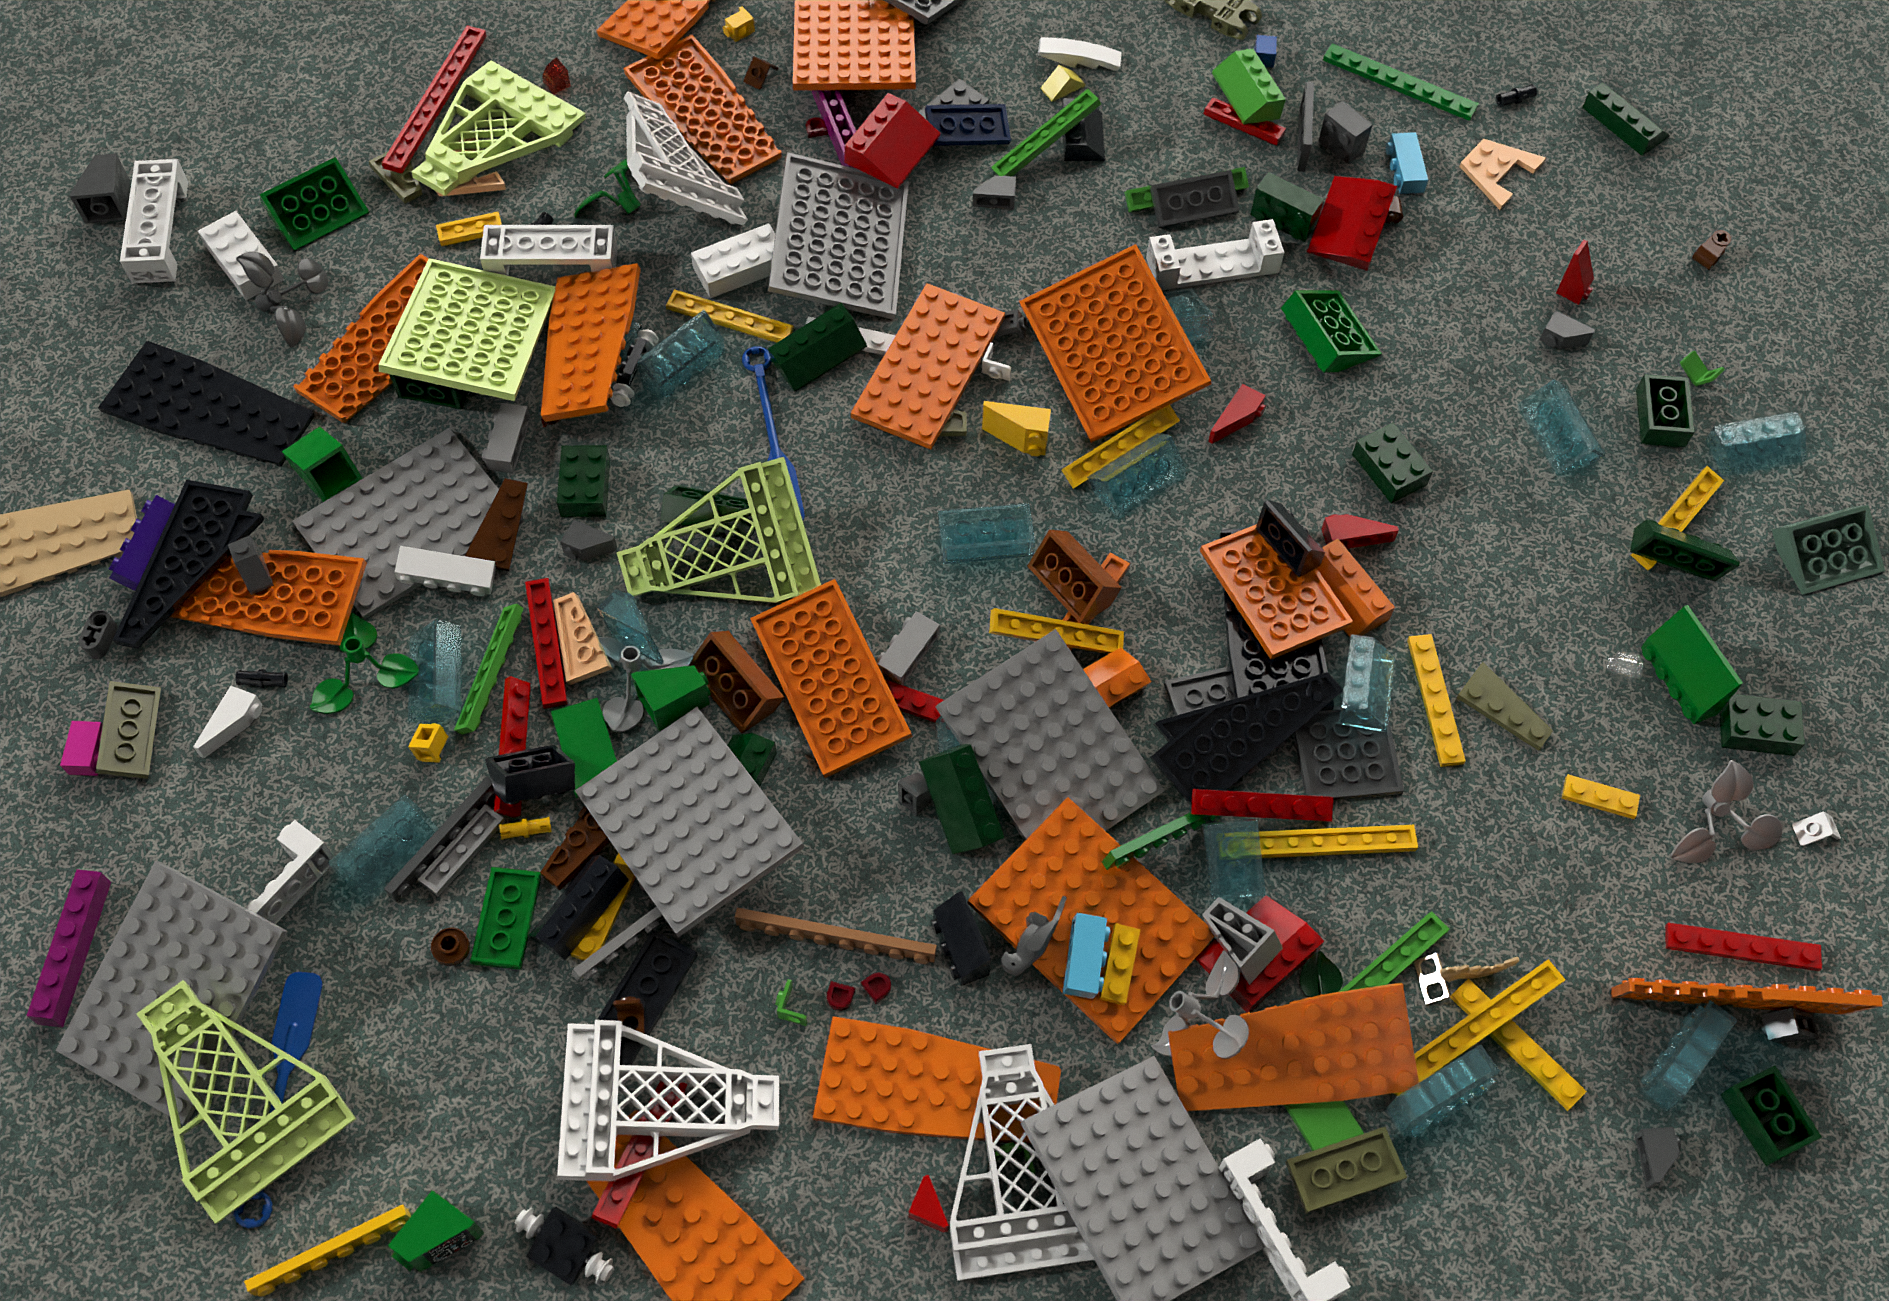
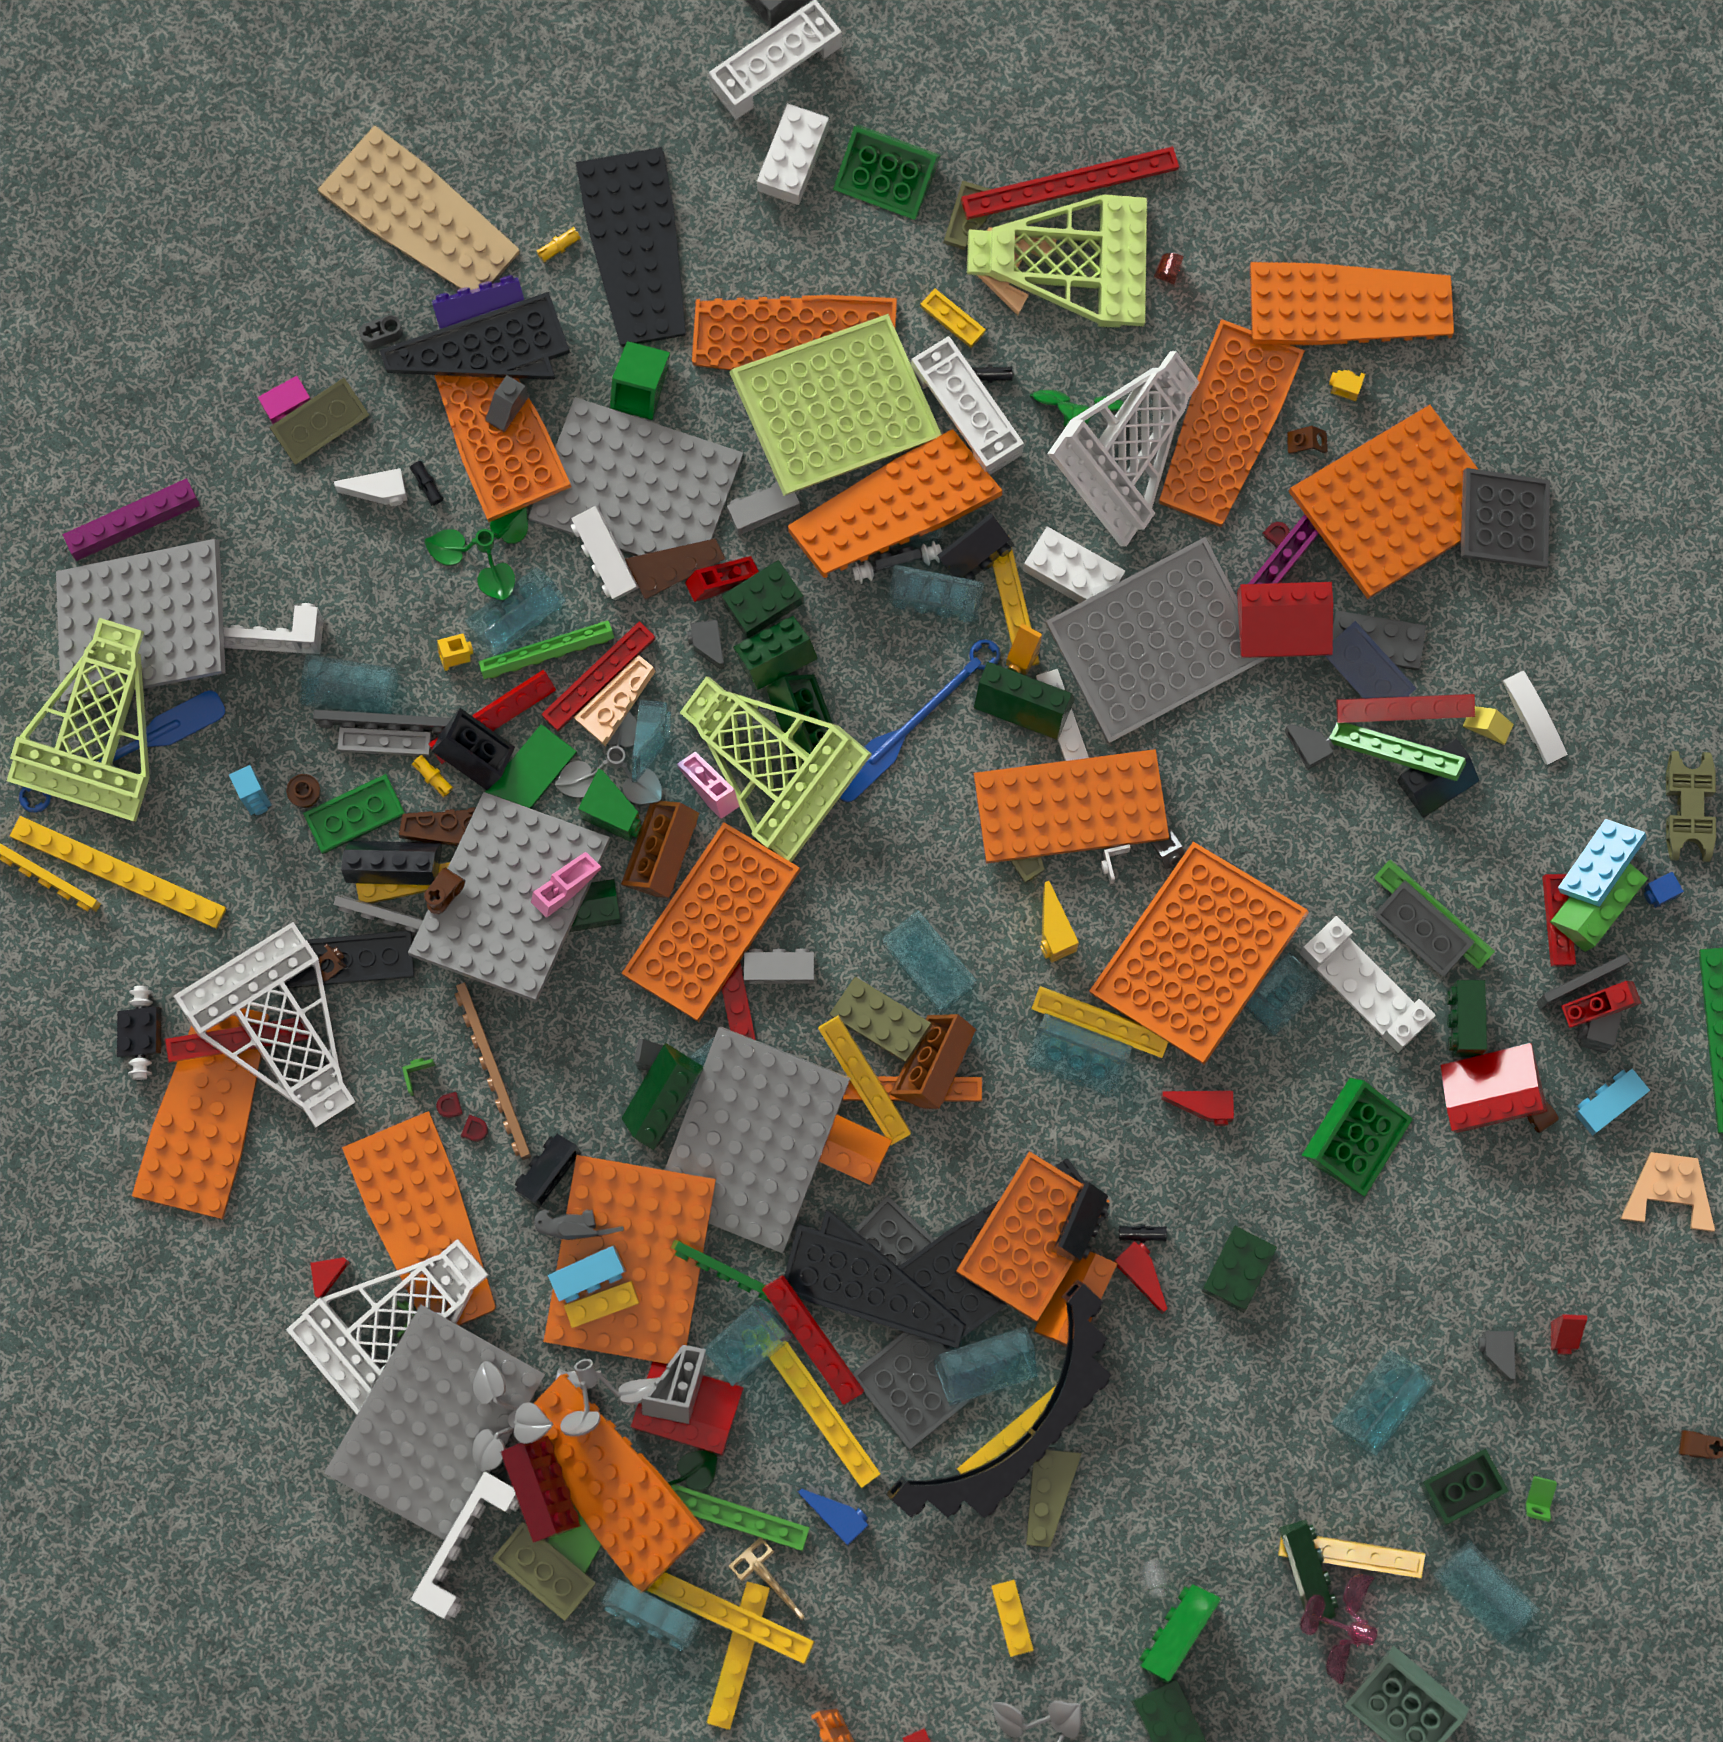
camera: 60 degrees right, 15 degrees up
(153, 459) = (558, 244): none -> yellow pin
(259, 271) = (764, 197): dark grey plant -> none
(387, 1173) = (118, 872): none -> yellow plate
(413, 986) = (250, 790): none -> medium azure brick
(433, 1234) = (90, 935): green slope -> none
(539, 503) = (720, 578): none -> red slope
(637, 493) = (775, 652): none -> dark green brick
(643, 866) = (443, 891): none -> reddish brown piece
(669, 303) = (976, 549): none -> black slope
(711, 610) = (709, 785): none -> bright pink slope
(715, 759) = (565, 884): none -> bright pink slope
(778, 312) = (1024, 650): none -> light orange slope
(1014, 119) = (1405, 708): none -> red plate
(1018, 591) = (881, 1019): none -> olive plate
(1205, 1075) = (525, 1421): none -> light grey plant
(1221, 69) = (1602, 862): none -> plate
(1269, 1118) = (540, 1489): none -> dark red brick
(1318, 513) = (1142, 1233): none -> black pin
(1338, 108) = (1602, 1003): none -> red slope
(1425, 620) = (995, 1479): none -> black arch
(1438, 880) = (840, 1517): none -> blue slope
(1759, 533) = (1358, 1631): none -> clear pink plant

